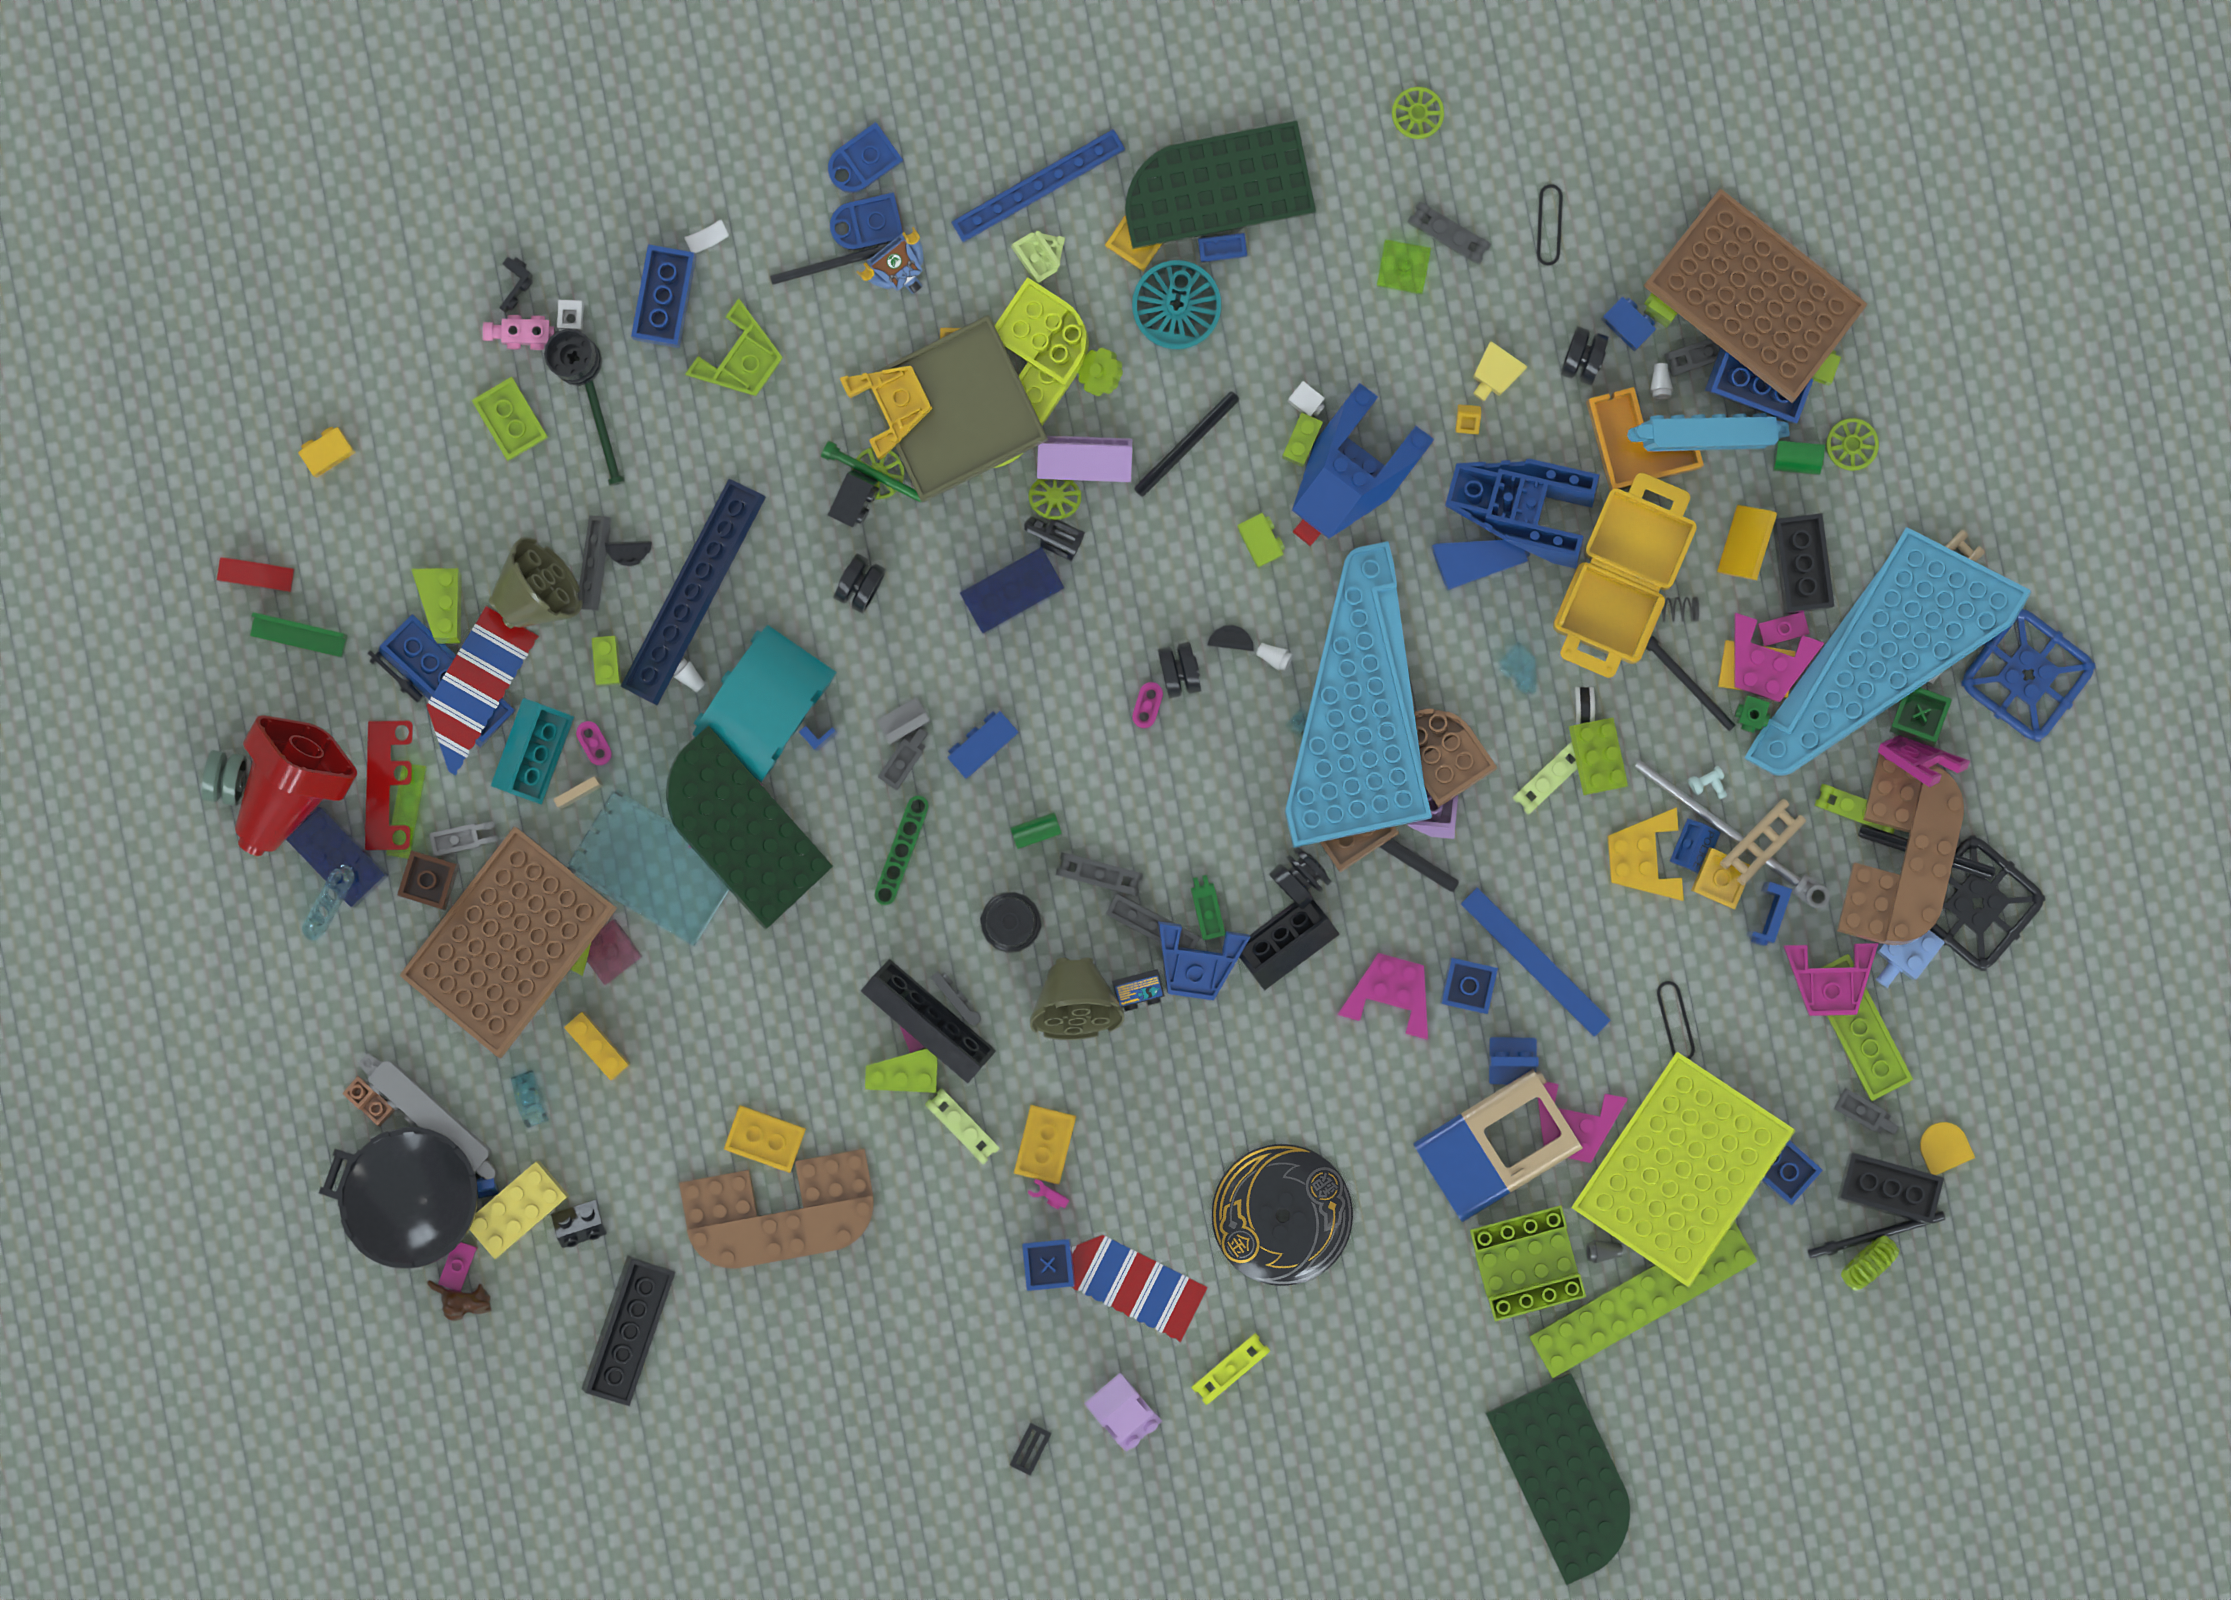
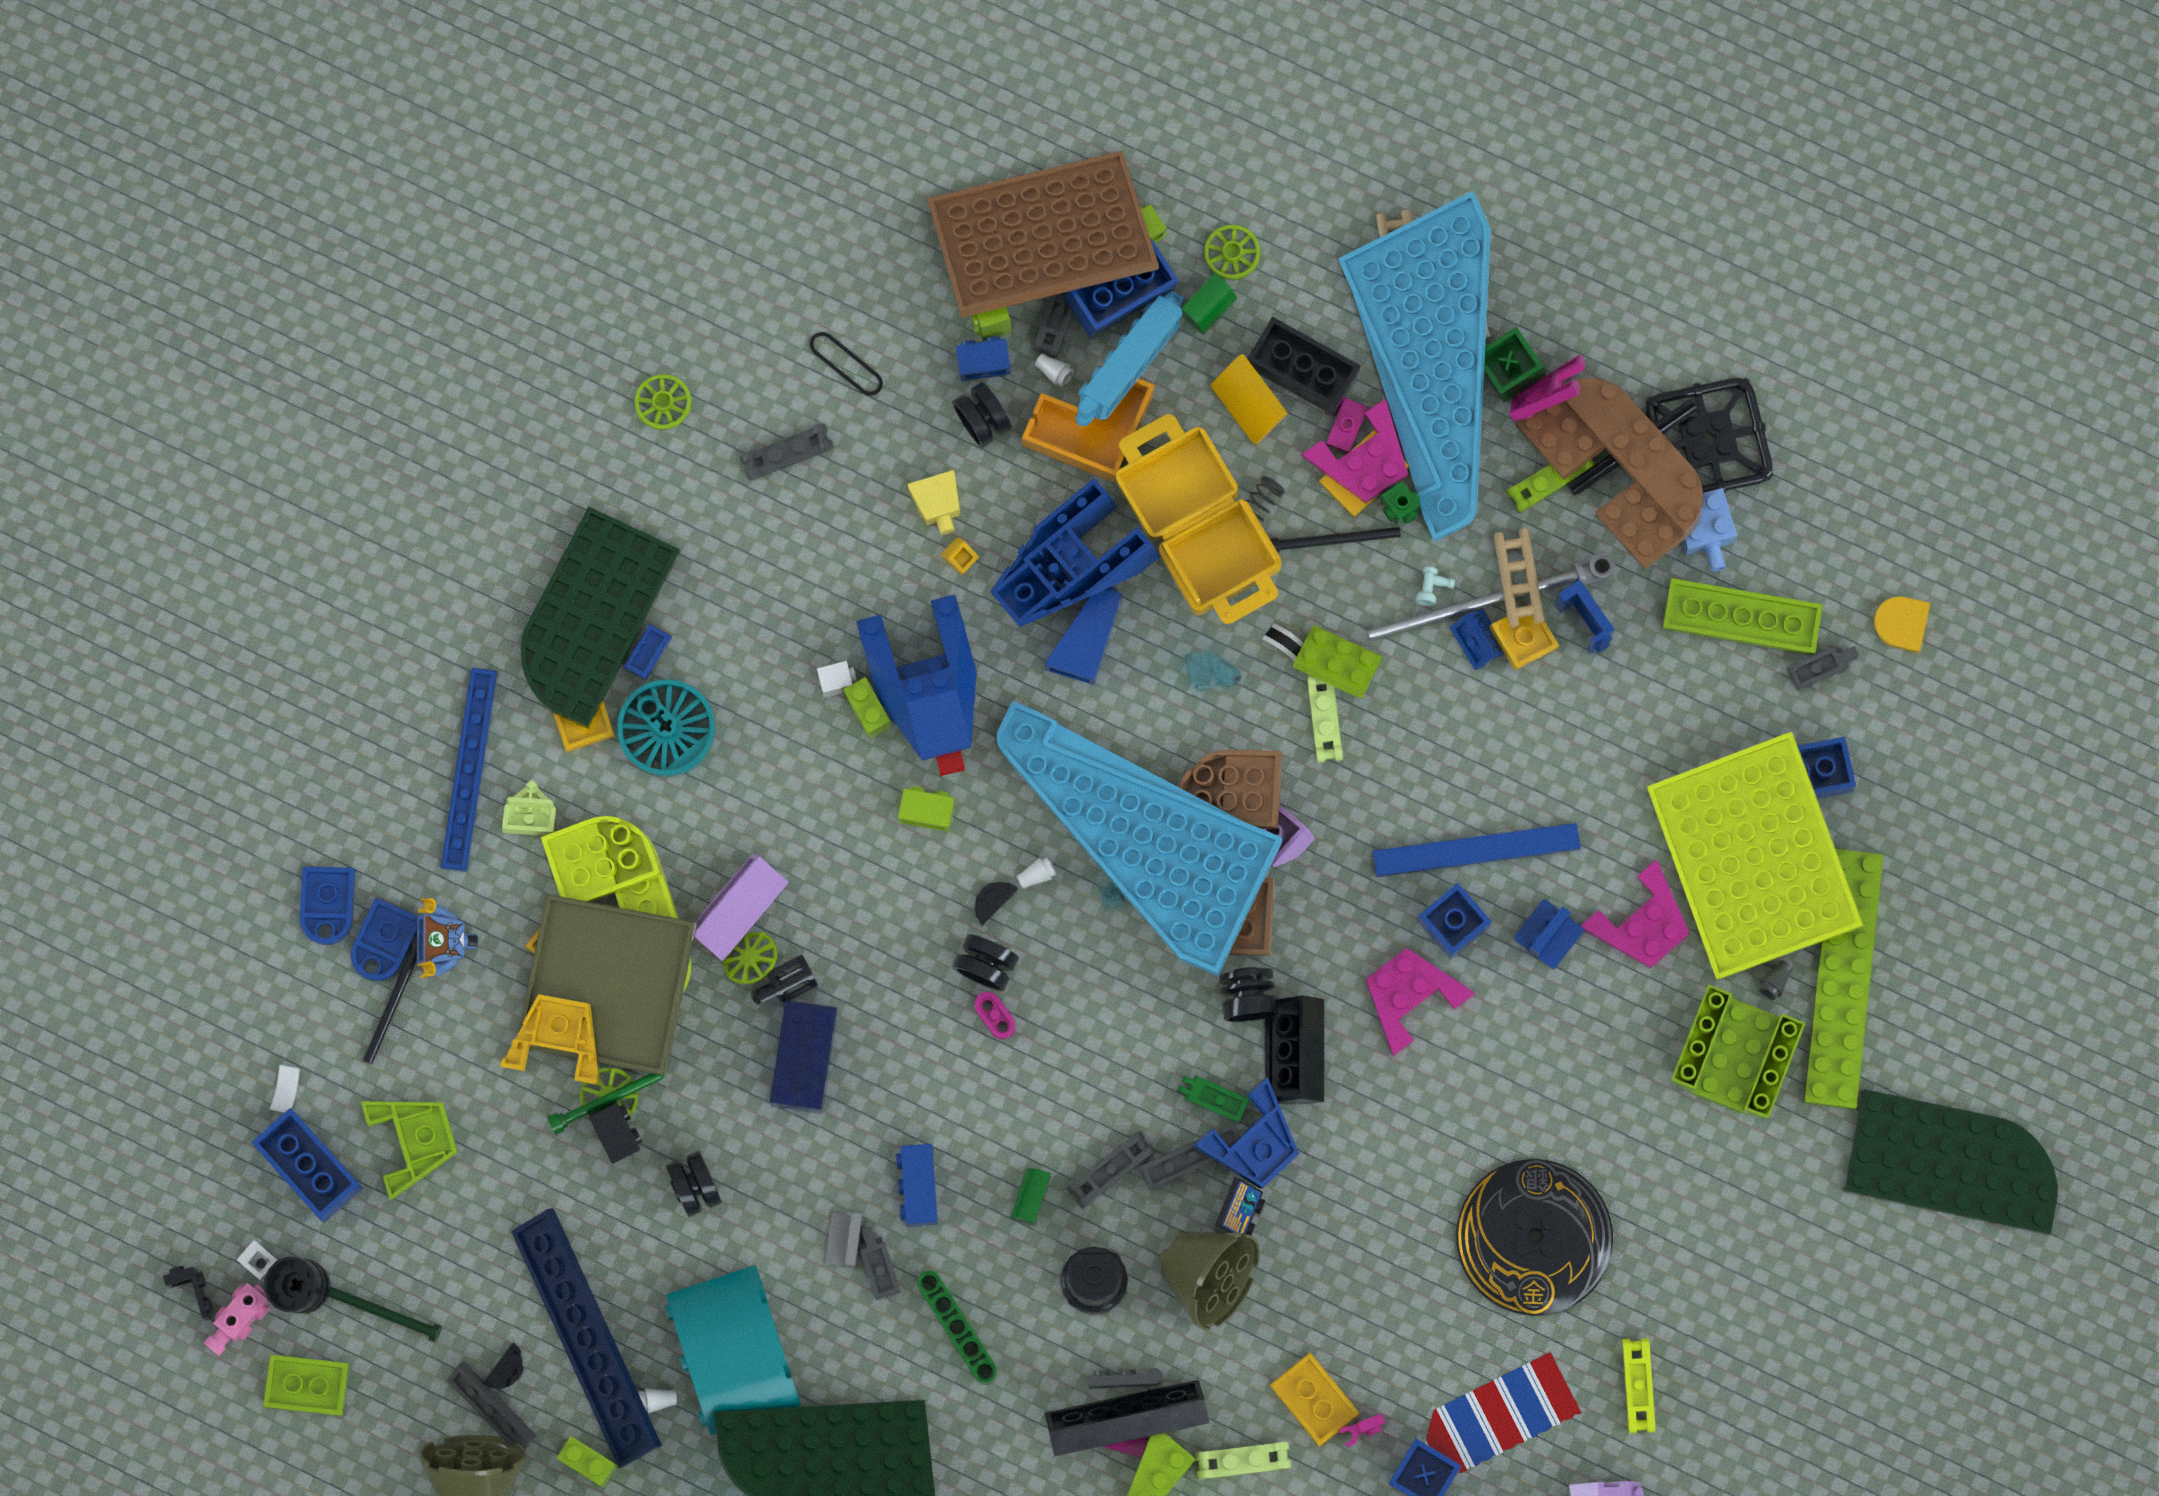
camera: 50 degrees left, 10 degrees down
(817, 743) = (799, 1330): blue panel -> none
(1100, 372) = (673, 835): lime plant -> none
(1186, 444) = (793, 810): black axle -> none
(1403, 267) = (785, 512): clear neon green tile -> none
(1420, 865) = (1316, 885): black axle -> none
(1468, 1164) = (1608, 1038): piece -> none
(1635, 856) = (1451, 698): yellow wing -> none
(1684, 1016) = (1617, 757): black piece -> none
(1831, 989) = (1690, 615): dark pink wing -> none
(1832, 1247) = (1919, 781): black bar -> none
(1870, 1263) = (1956, 757): lime gear -> none
(1890, 1188) = (1904, 692): black brick -> none
(2030, 690) = (1558, 259): blue plate -> none

